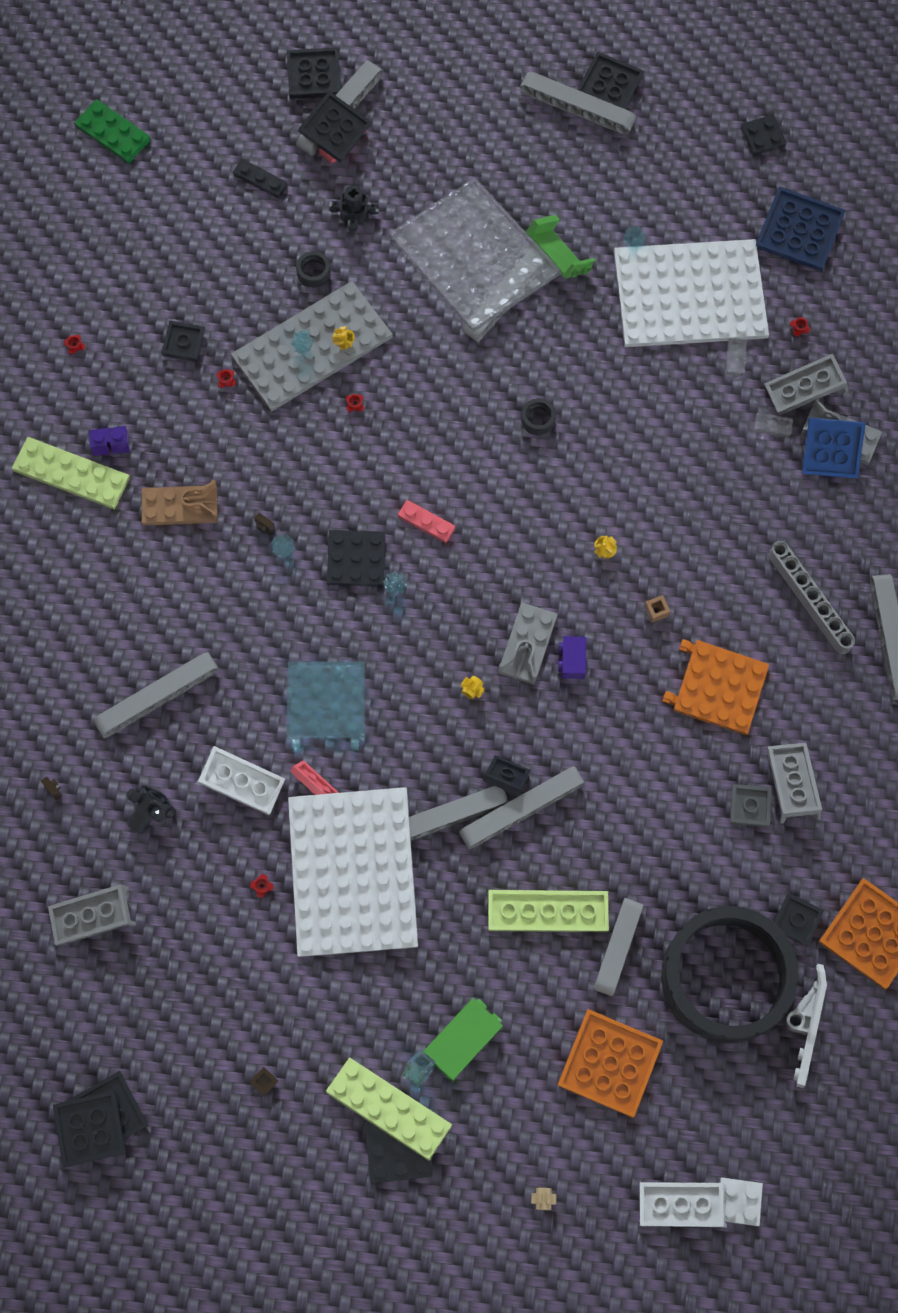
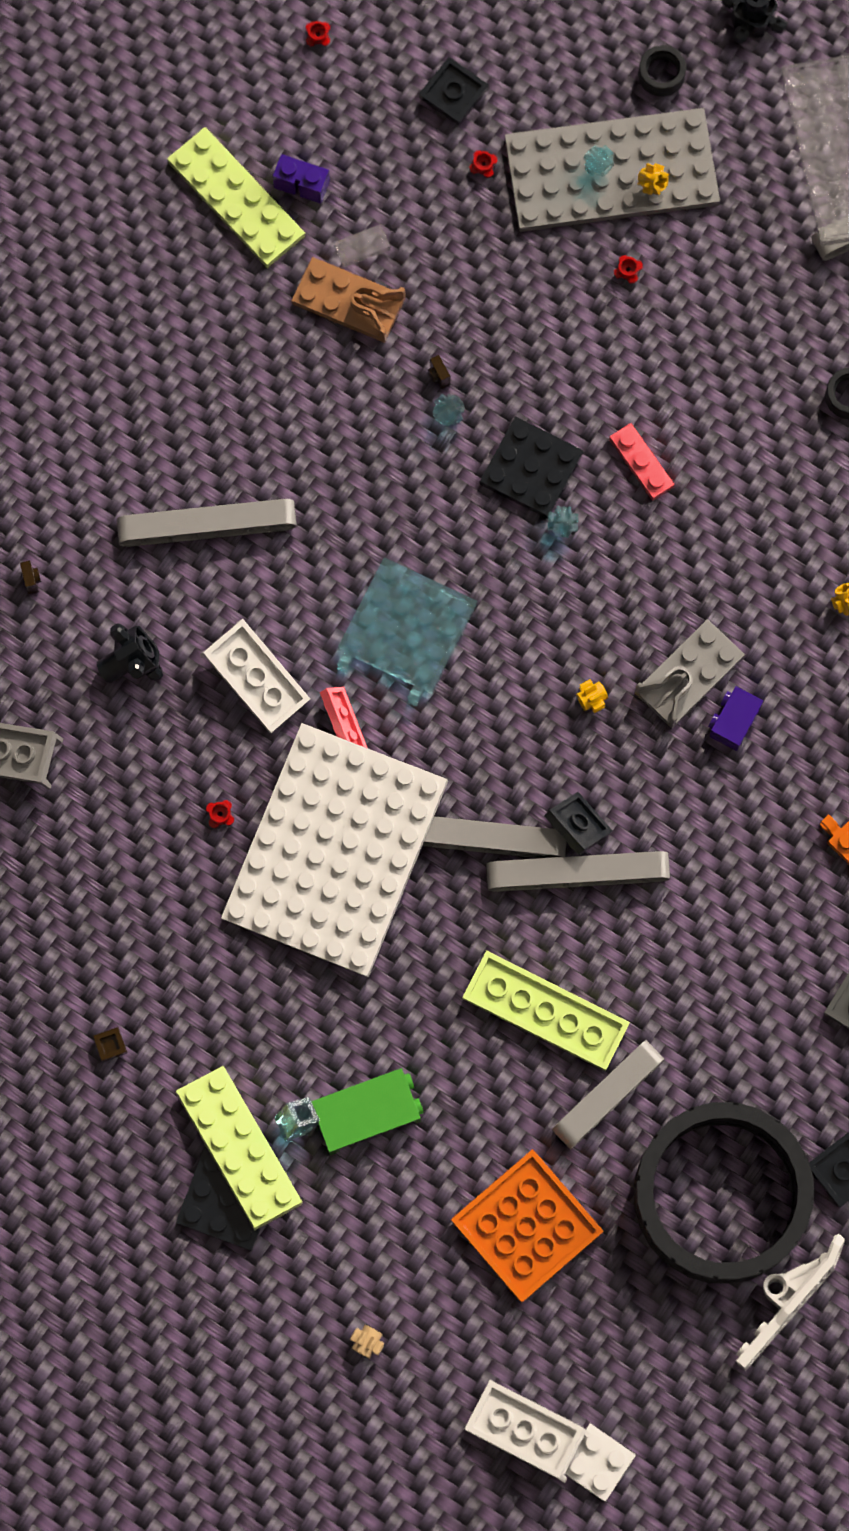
camera: 30 degrees right, 5 degrees up
(171, 466) = (362, 245): none -> clear plate

